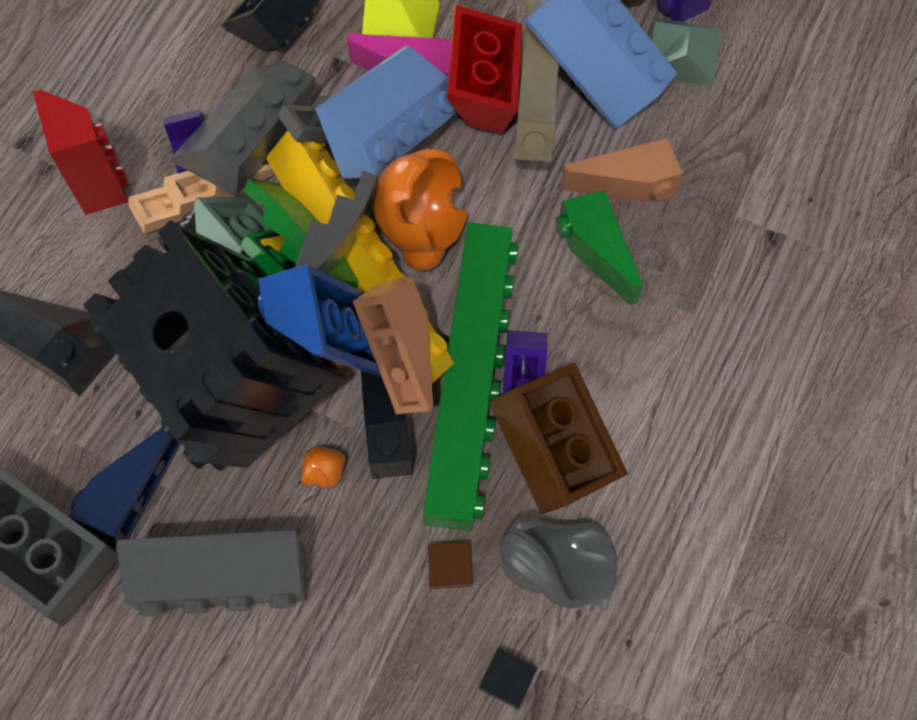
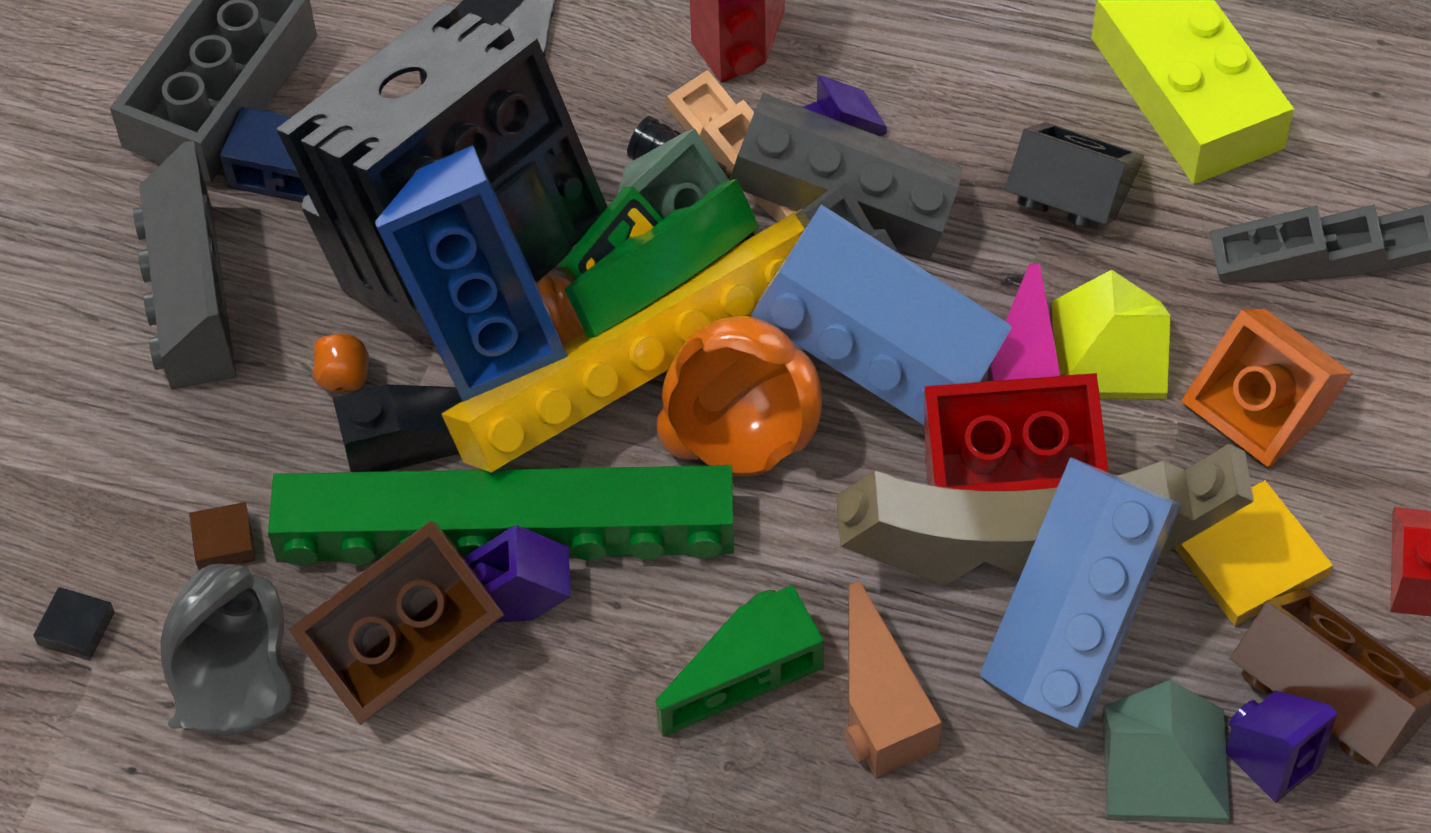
camera: 85 degrees right, 10 degrees down
(328, 243) = (600, 259): dark grey slope -> none
(399, 342) = (493, 370): nougat slope -> none

